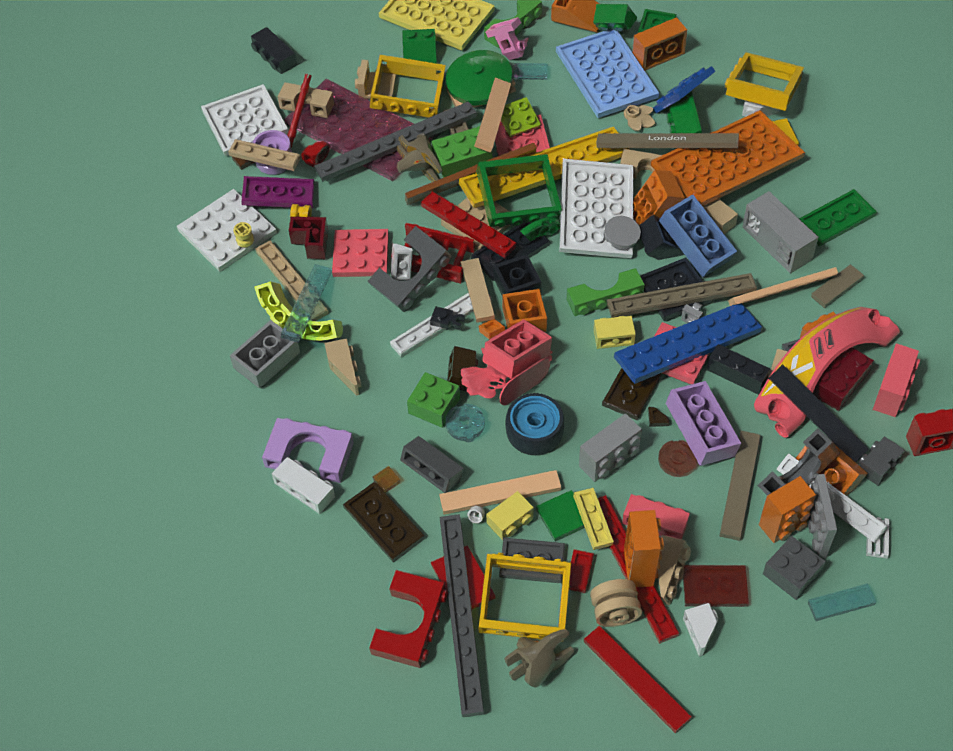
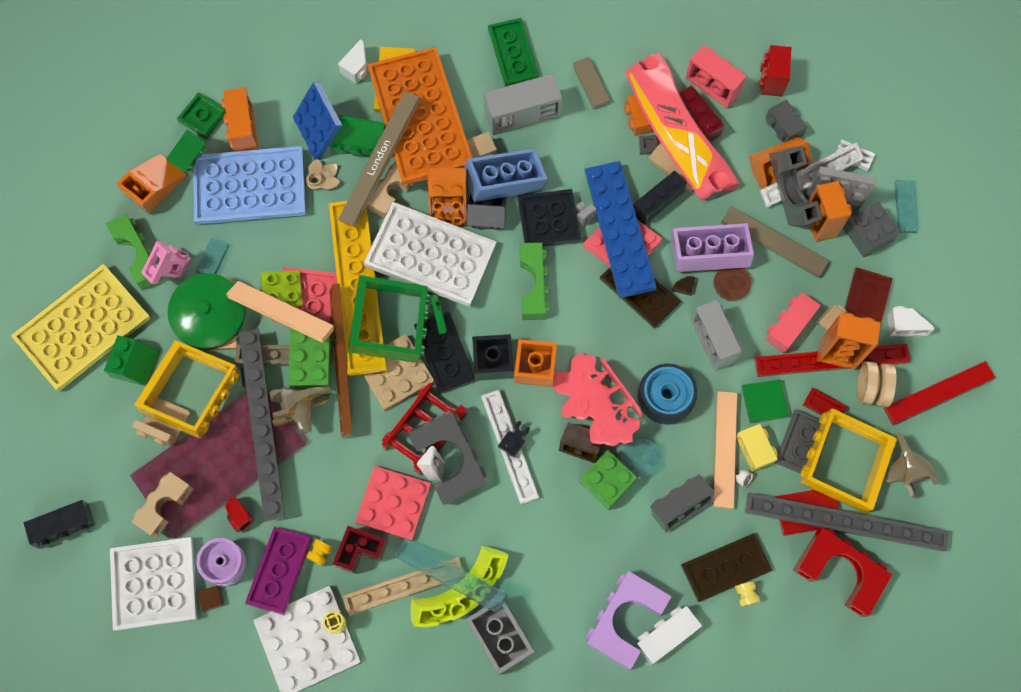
camera: 75 degrees left, 15 degrees up
(264, 155) = (234, 571): tan tile -> none
(299, 107) = (156, 501): red piece -> none
(341, 364) = (531, 559): tan slope -> none
(361, 541) = (747, 593): none -> light yellow wheel
(386, 479) = (680, 552): clear orange tile -> none
(468, 224) = (404, 383): red plate -> none
(477, 290) = (489, 399): tan tile -> none
(491, 328) = (540, 400): orange plate -> none
(517, 348) = (587, 381): coral brick -> none
(593, 518) = (783, 375): light yellow plate -> none
(614, 332) = (581, 290): light yellow brick -> none
(622, 232) = (471, 240): light grey tile -> none
(681, 295) = (563, 216): dark tan tile -> none
(761, 94) = (351, 61): yellow window -> none
(792, 284) = (580, 127): light nougat tile -> none
(818, 413) = (732, 150): black tile -> none

